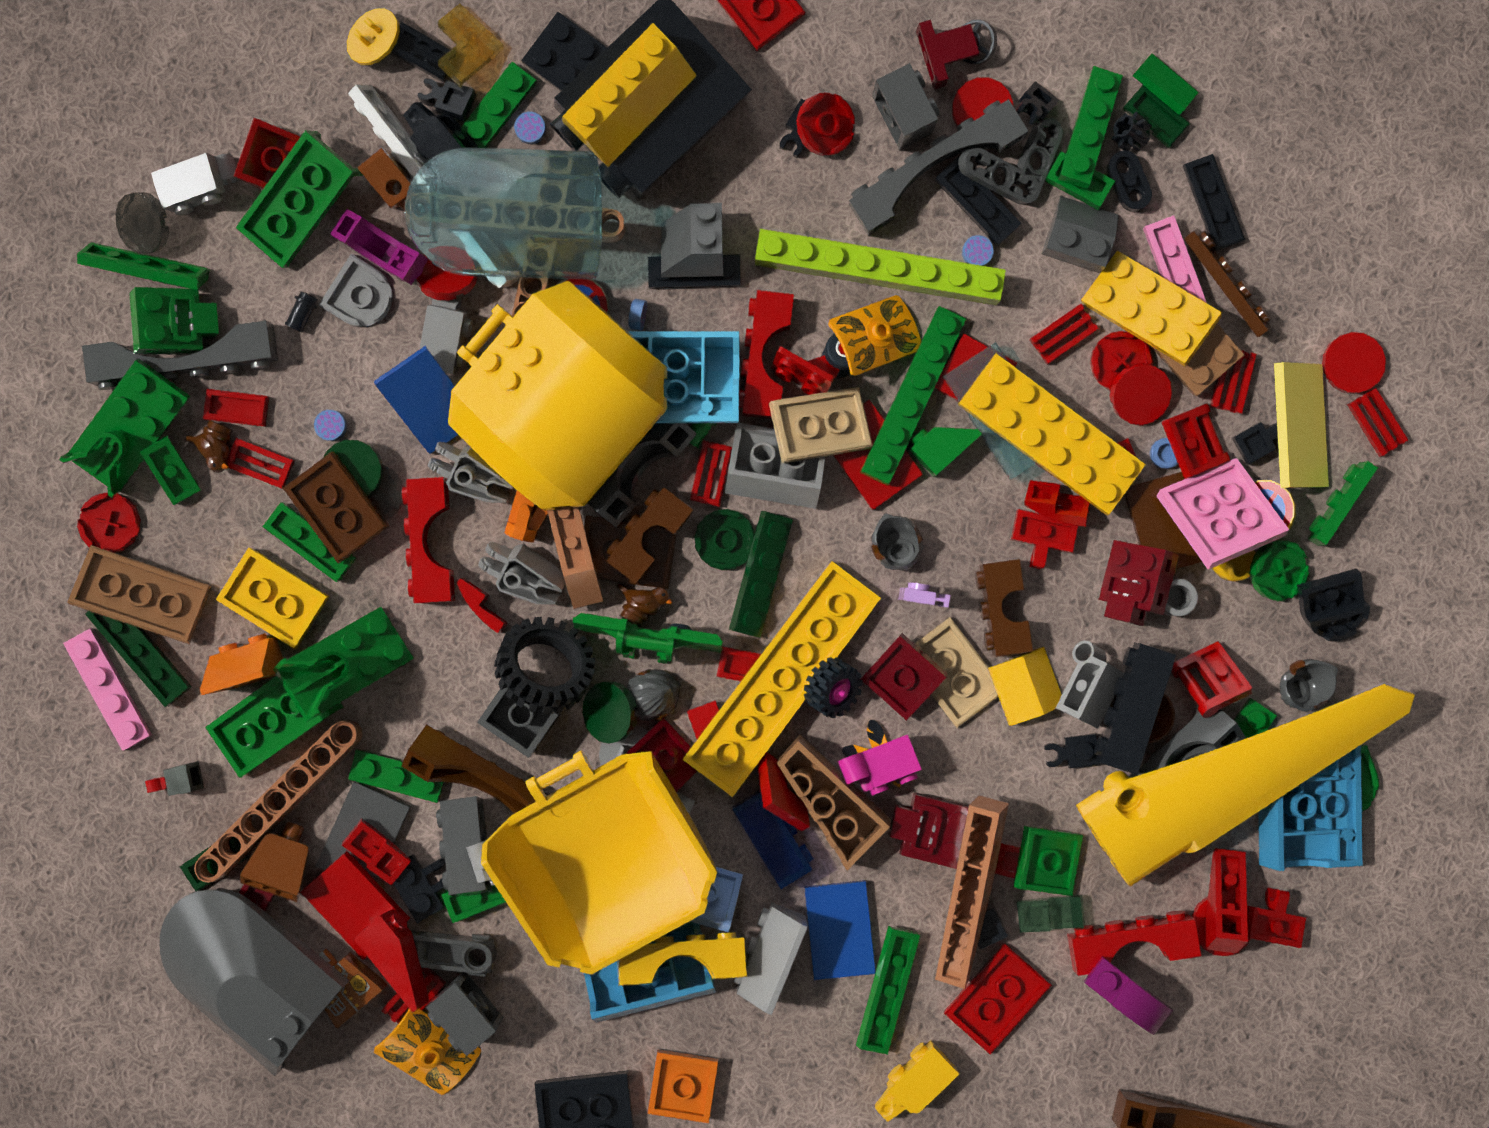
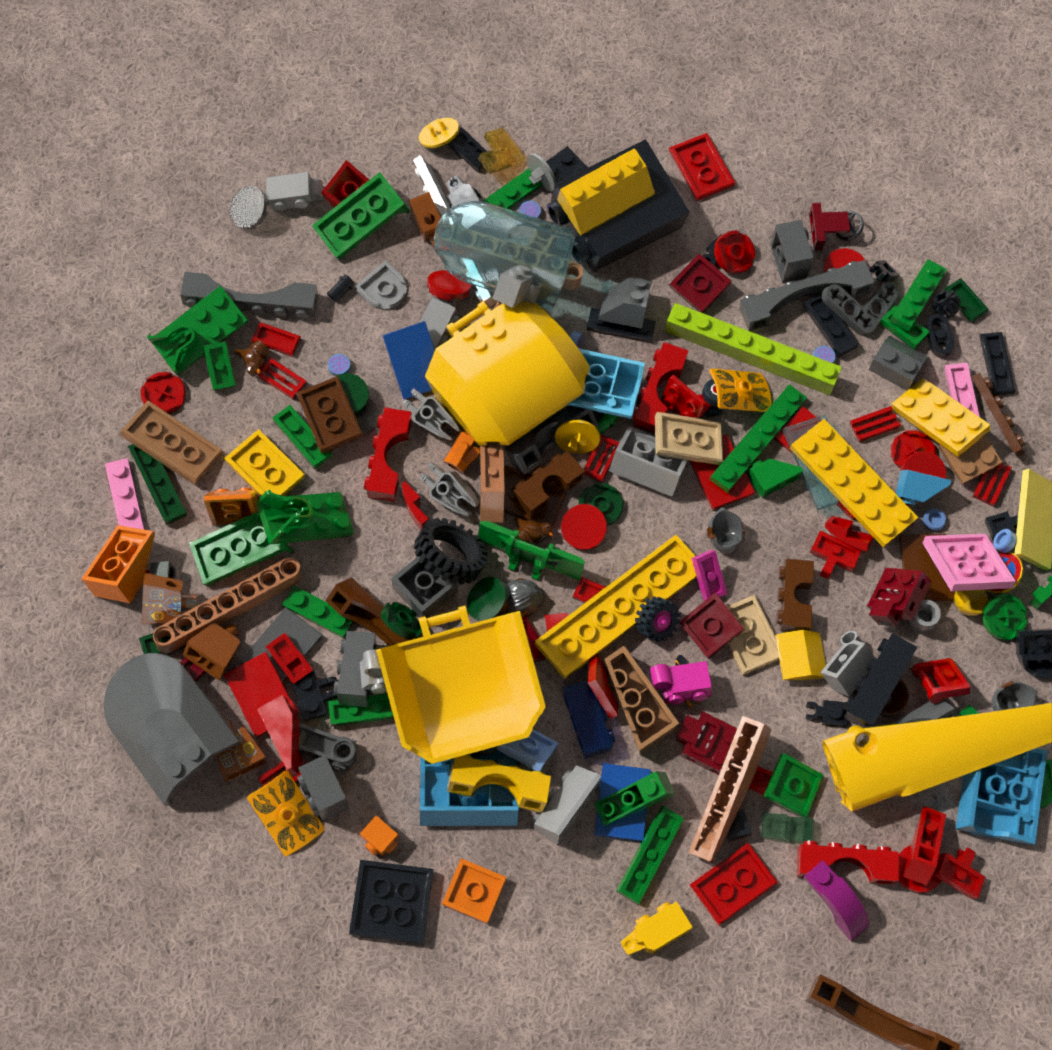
camera: 10 degrees right, 20 degrees down
(125, 782) = (120, 564): none -> orange slope
(143, 266) = (241, 234): green tile -> none
(170, 321) = (250, 270): green piece -> none
(194, 816) = (164, 599): none -> dark orange torso
(379, 247) = (406, 259): magenta arch -> none
(450, 99) = (482, 180): black plate -> none
(505, 770) = (401, 620): none -> dark green tile
(530, 69) = (541, 172): none -> light grey piece
(537, 277) = (516, 286): none -> light grey hinge
(551, 1050) = (379, 837): none -> orange brick
(672, 459) = (577, 436): none -> yellow piece
(710, 579) = (584, 526): none -> red tile
(760, 574) = (621, 533): dark green plate -> none
(788, 183) = (700, 283): none -> dark red plate
(856, 928) = (635, 797): none -> green slope
(887, 610) = (709, 574): none -> dark pink plate
(920, 594) = (737, 569): lavender plate -> none
(1140, 419) = (918, 487): none -> dark azure slope
(1165, 84) = (975, 280): green tile -> none
(1189, 442) = (956, 512): red plate -> none
(1265, 468) = (1005, 540): none -> medium blue tile

